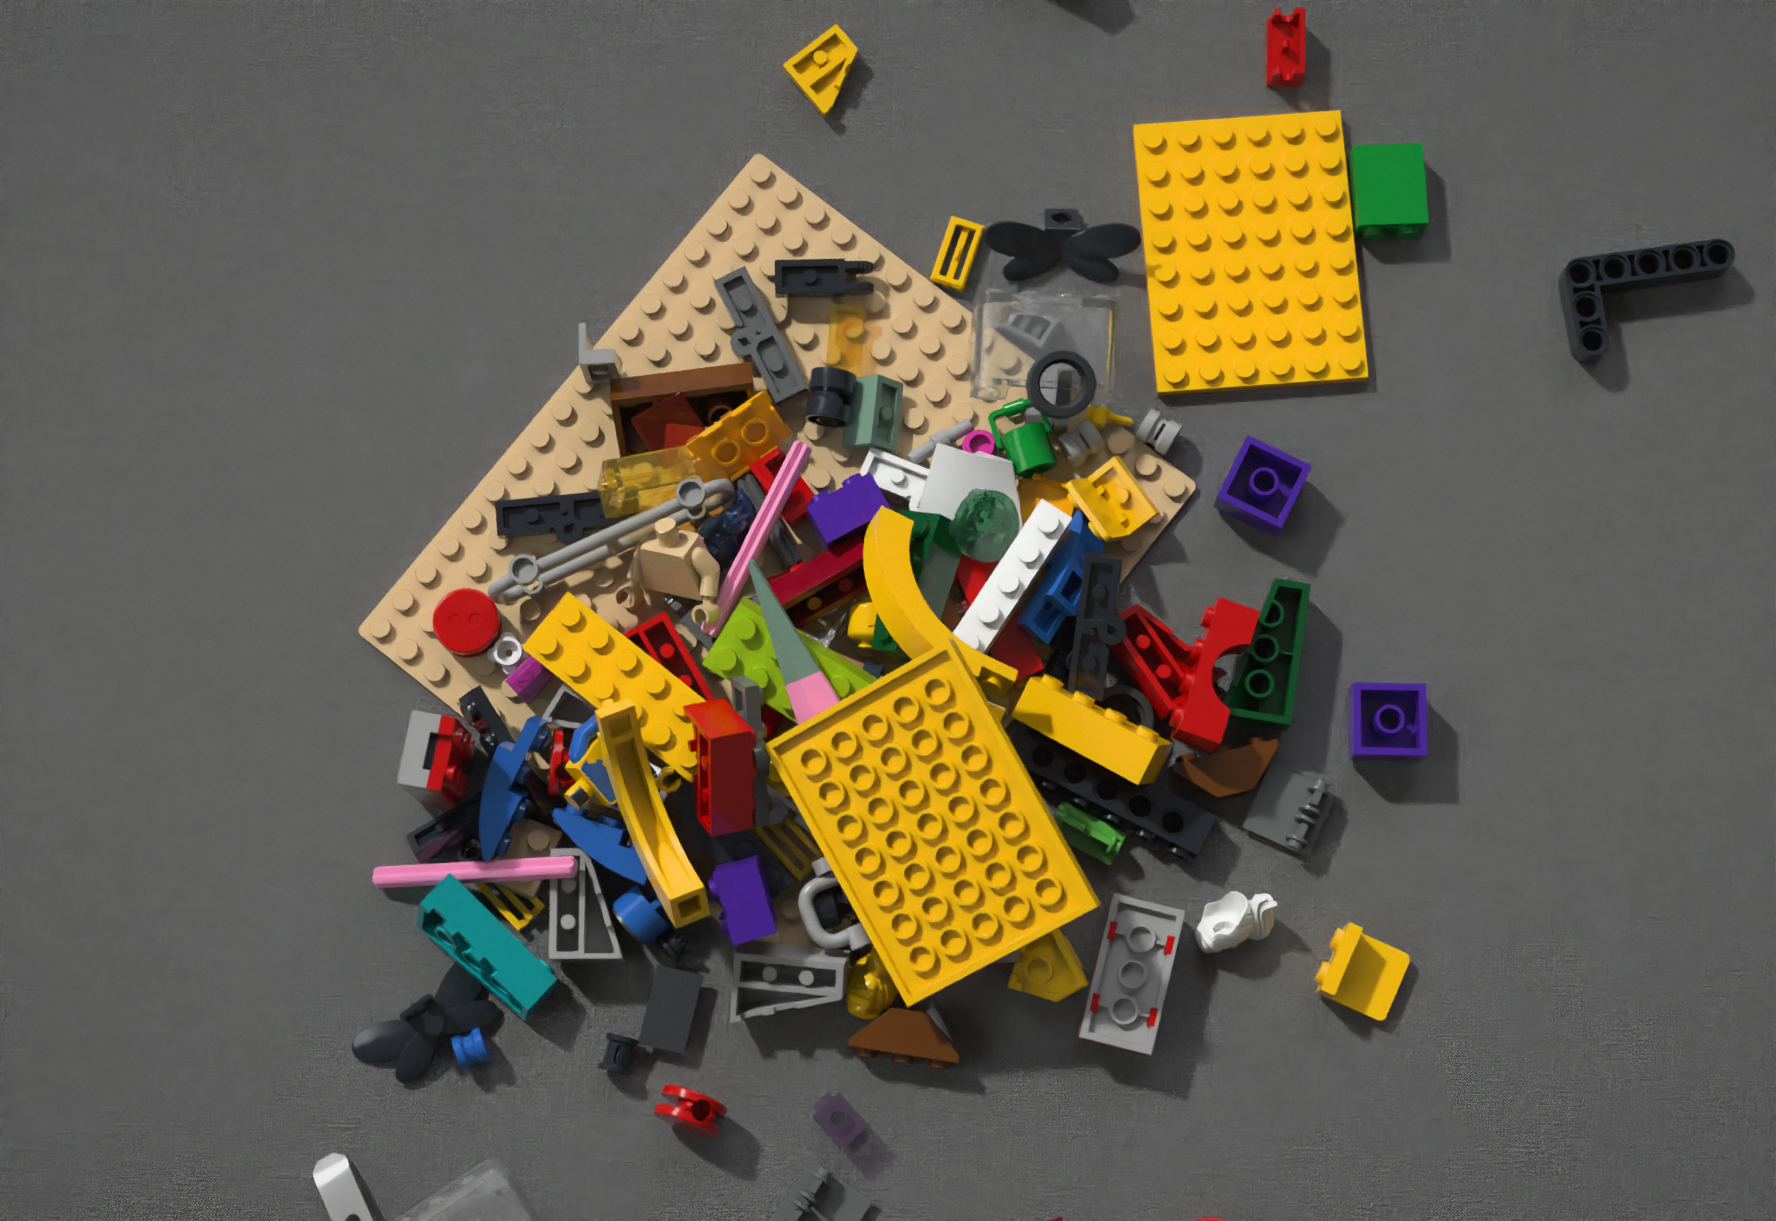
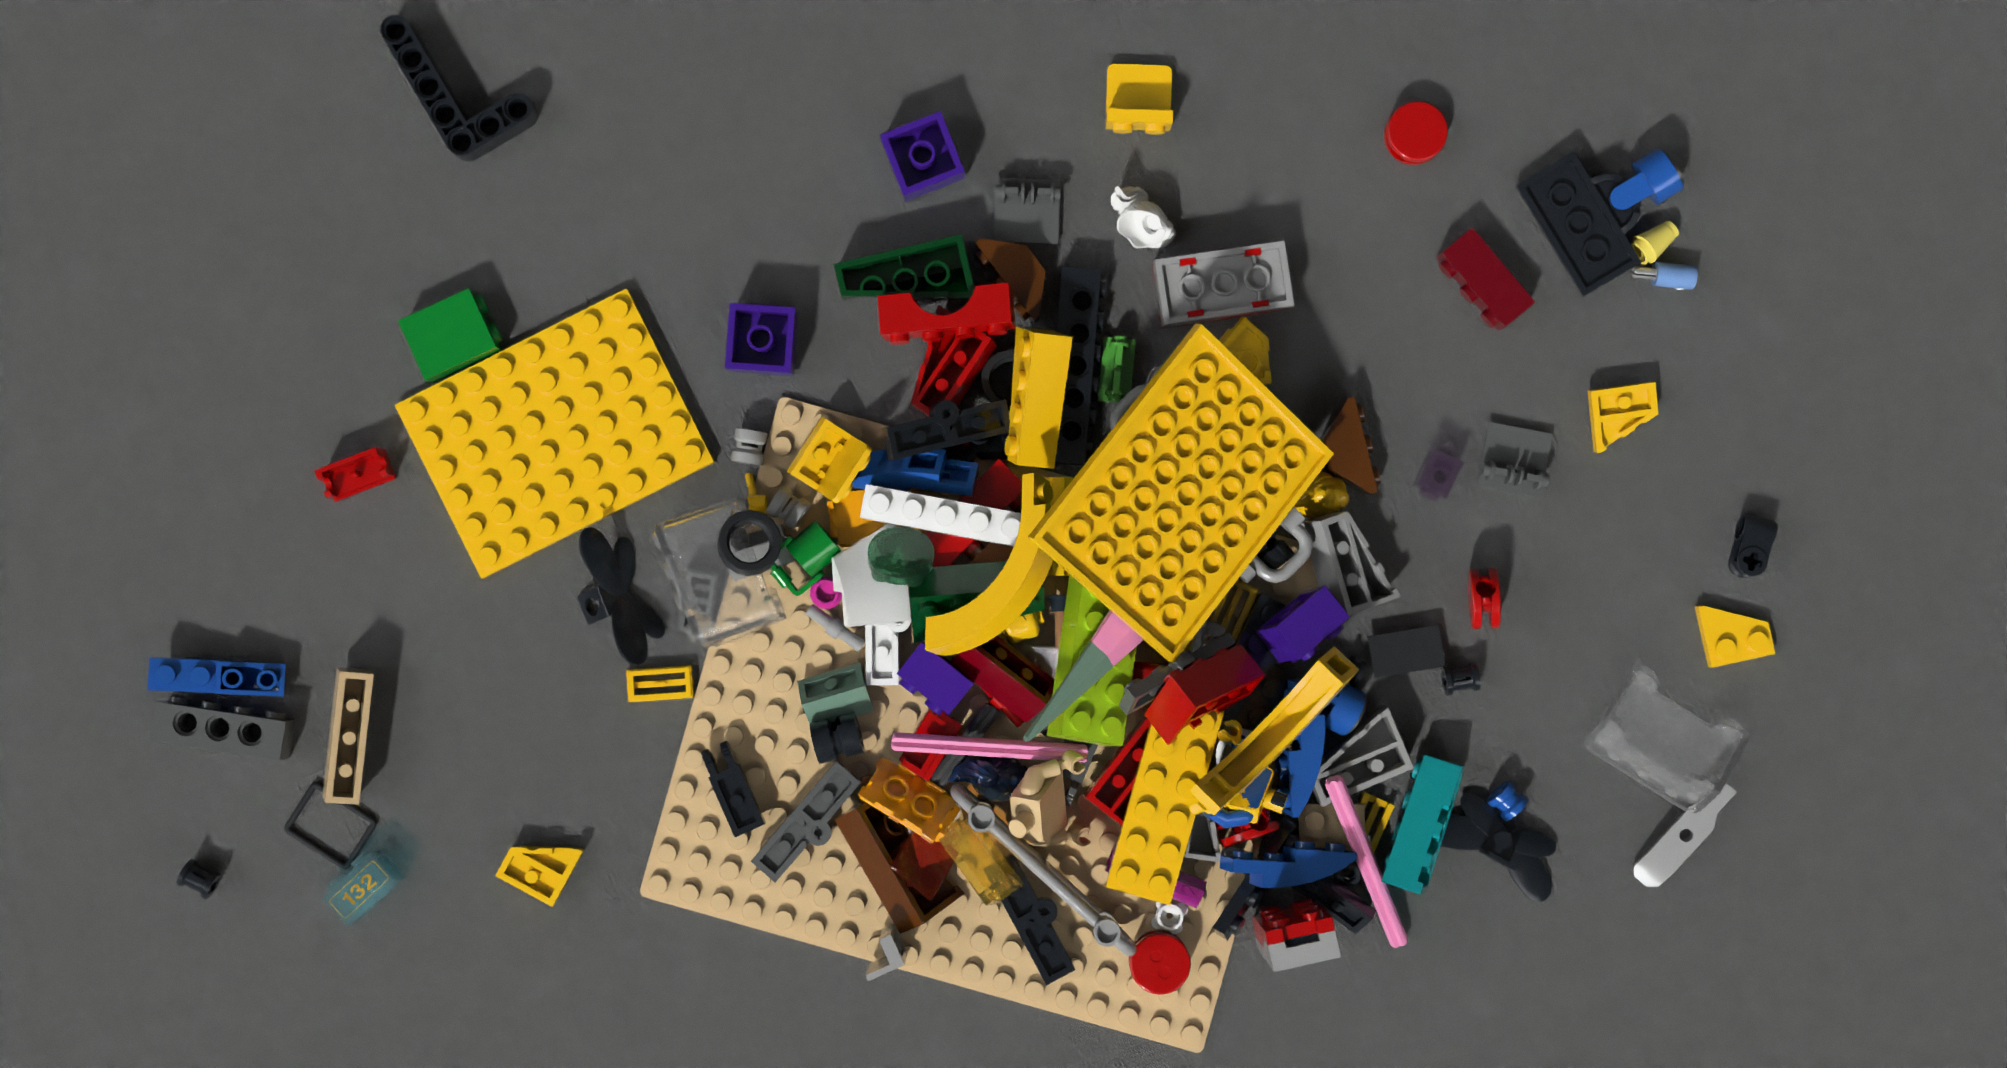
camera: 115 degrees left, 10 degrees up
(846, 337) = (779, 746): clear yellow tile -> none

